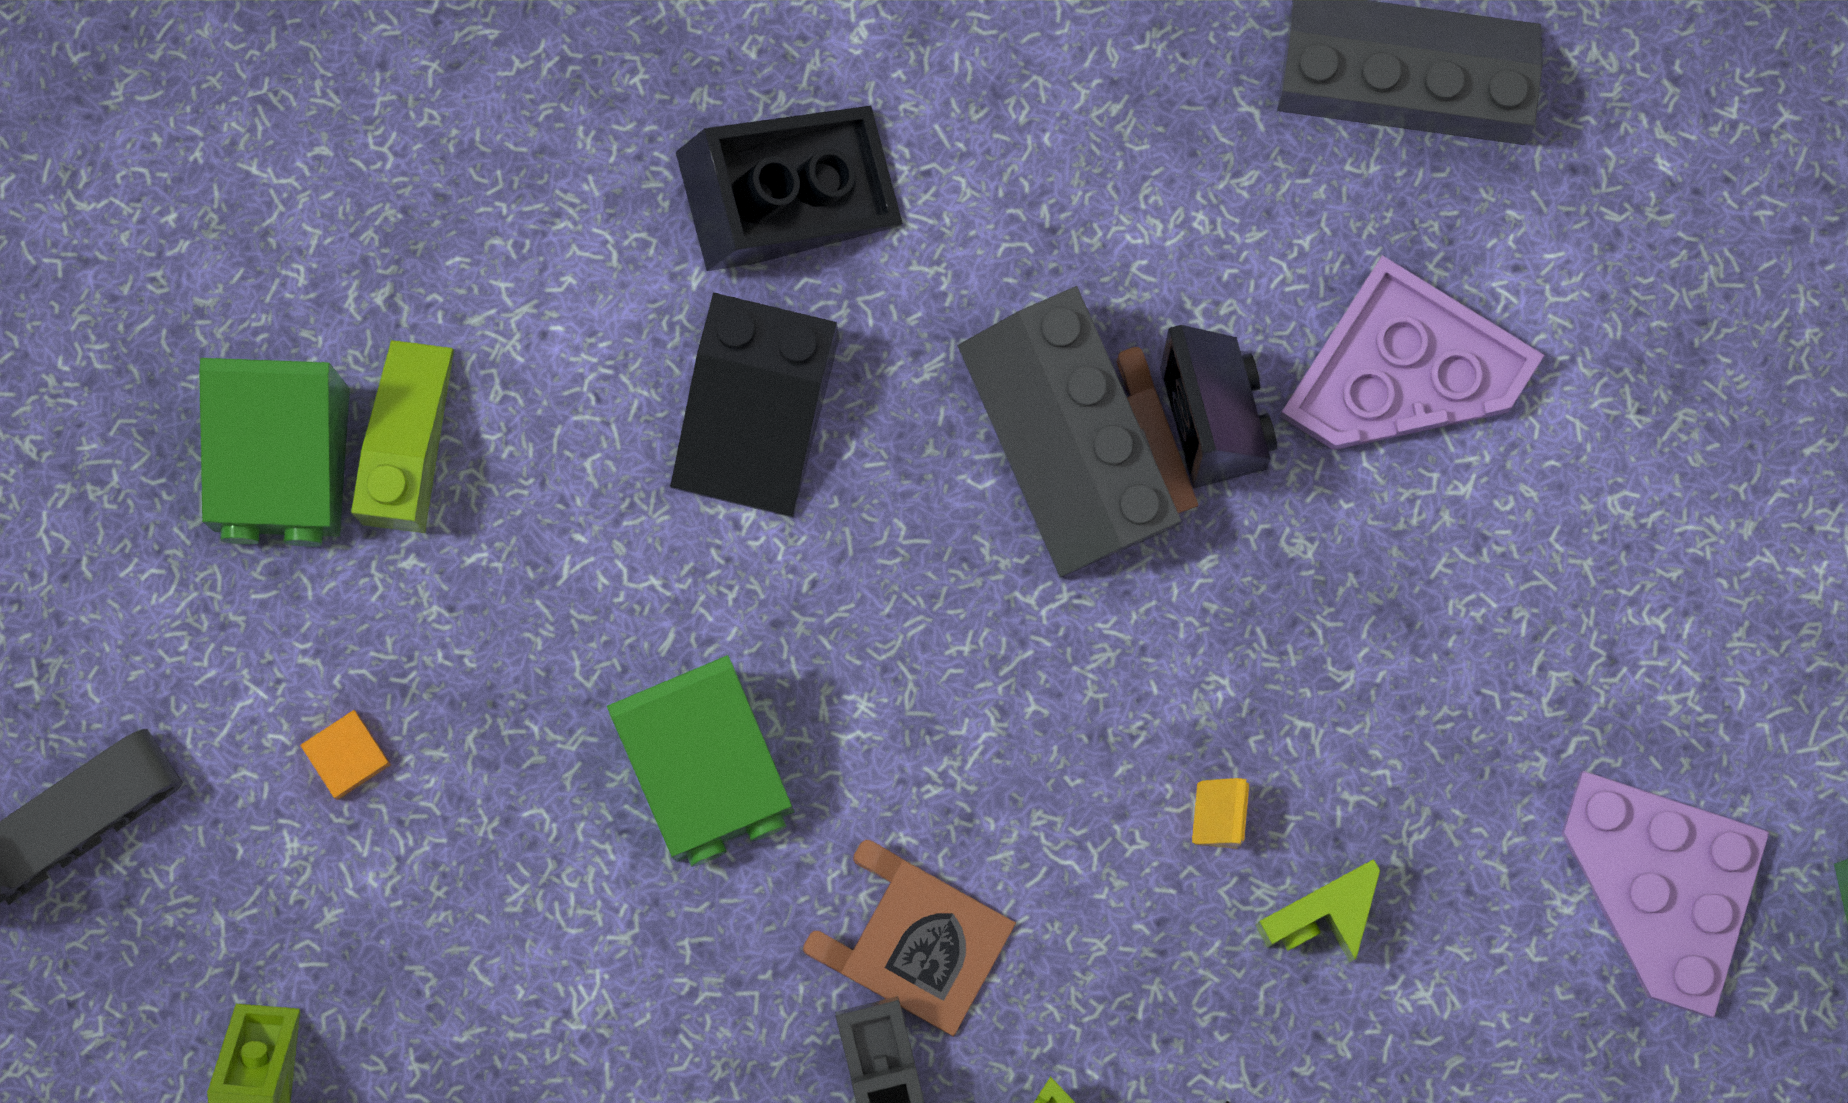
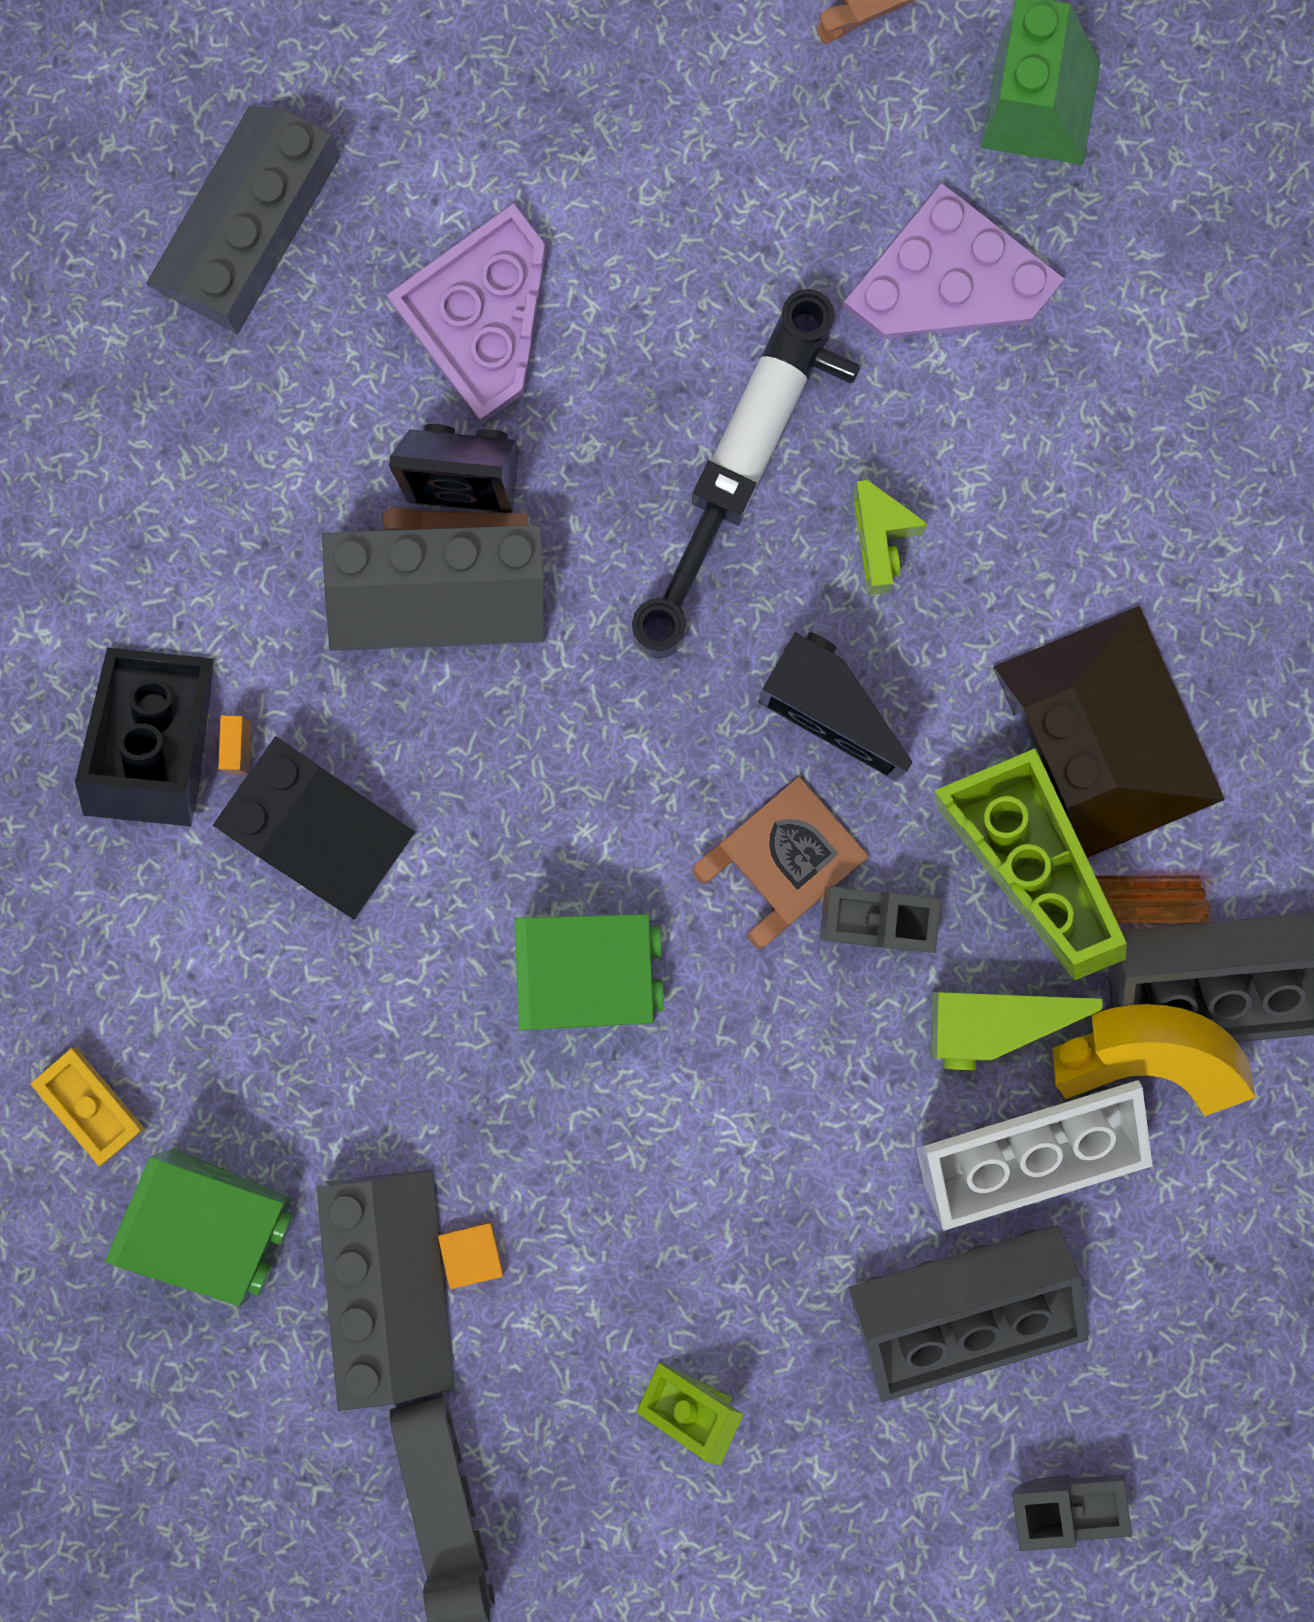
camera: 75 degrees left, 5 degrees up
(276, 673) = (385, 1289): none -> dark grey slope
(361, 278) = (87, 1106): none -> yellow plate
(403, 438) = (231, 1118): lime slope -> none
(813, 283) = (234, 745): none -> light orange tile
(1112, 905) = (827, 700): none -> black slope
(1220, 813) = (774, 586): yellow slope -> none
(1329, 717) = (746, 448): none -> black piece

